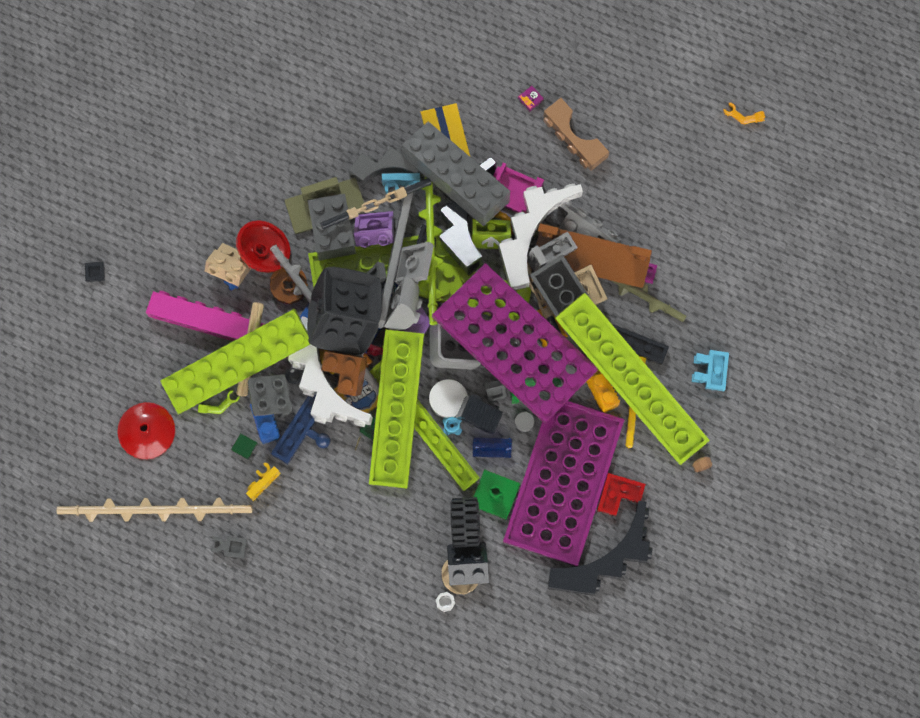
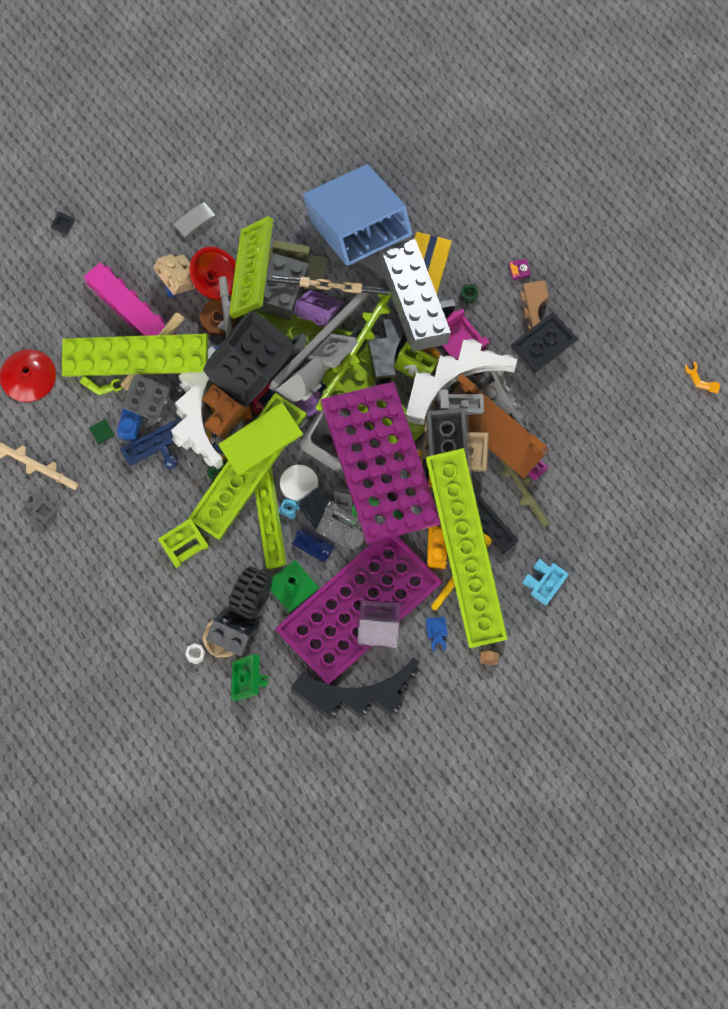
camera: 25 degrees right, 5 degrees down
(214, 205) = (196, 218): none -> light grey slope
(258, 487) = (93, 471): yellow plate -> none
(295, 224) = (251, 267): none -> lime plate
(364, 125) = (357, 214): none -> medium blue brick
(371, 506) = (179, 537): none -> lime plate
(396, 379) = (260, 439): none -> lime tile
(402, 179) = (360, 276): medium azure plate -> none
(499, 144) = (469, 293): none -> dark green tile
(504, 599) = (246, 677): none -> green tile
(508, 424) = (336, 530): none -> clear plate
(592, 155) = (544, 342): none -> black tile
(593, 488) = (379, 624): none -> clear purple slope
(617, 488) = (407, 641): red plate -> none
(642, 464) = (437, 629): none -> blue plate

